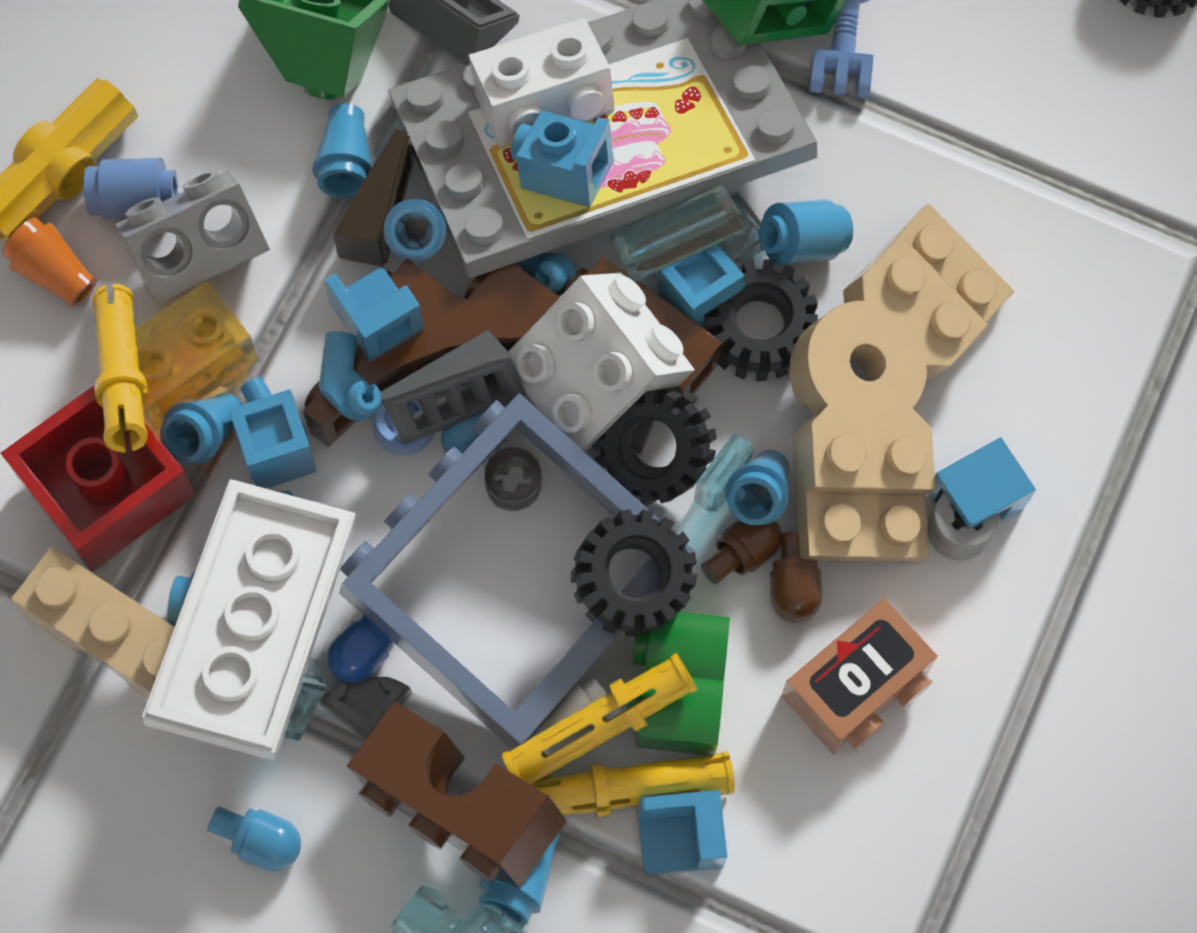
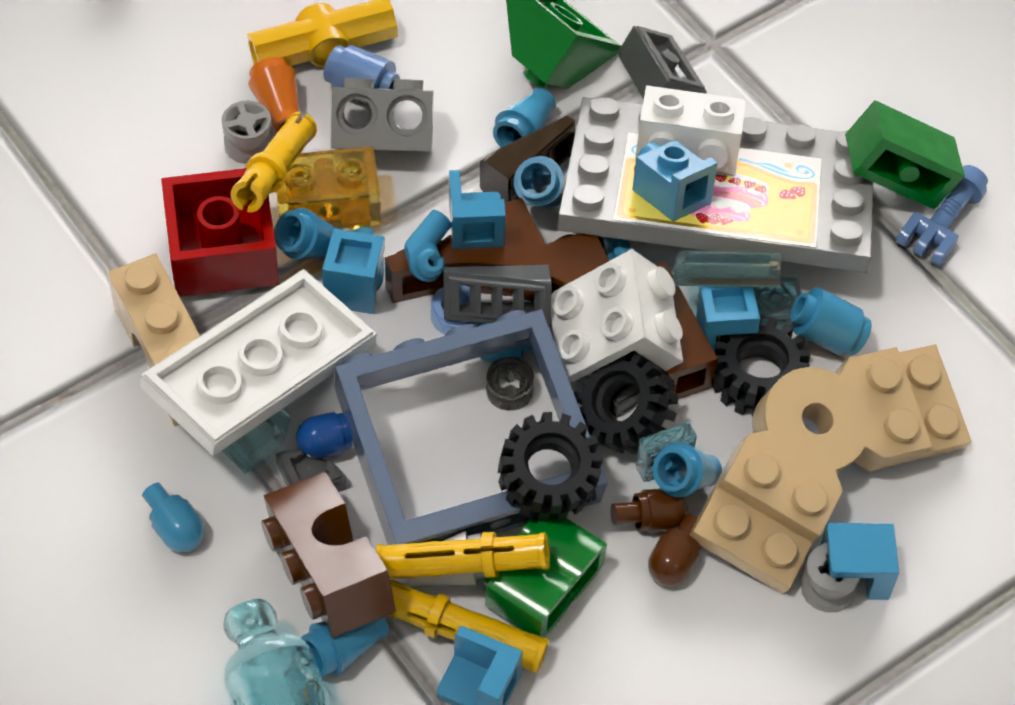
camera: 30 degrees right, 15 degrees down
(39, 314) = (250, 119): none -> light grey wheel
(860, 677) = (682, 639): brick -> none

